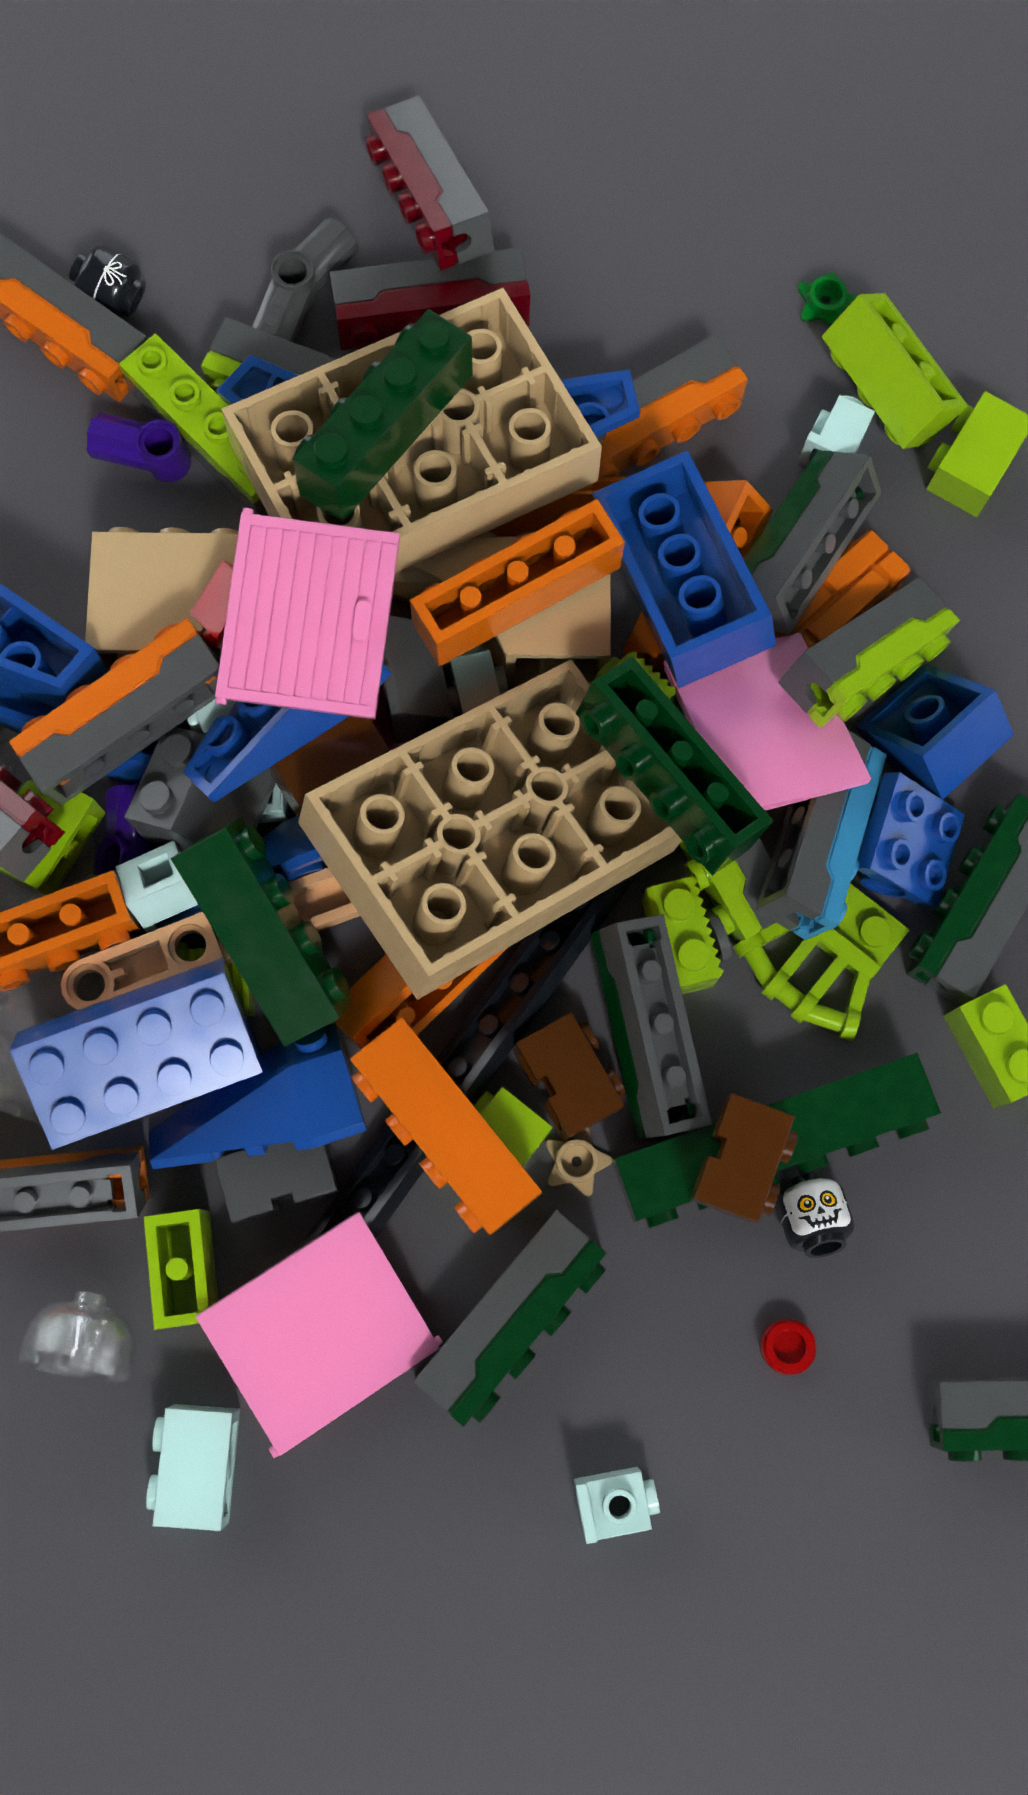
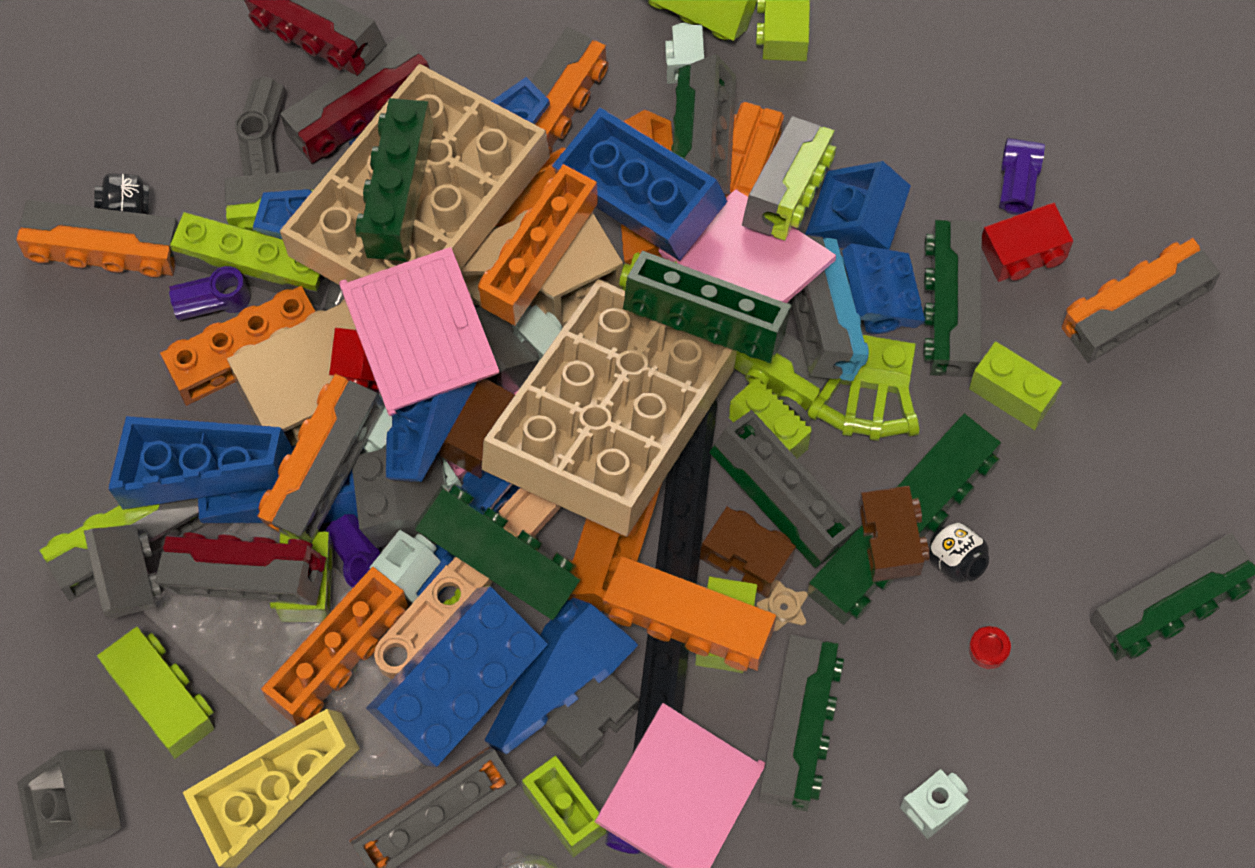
camera: 25 degrees left, 10 degrees down
(73, 511) = (201, 362): none -> orange brick

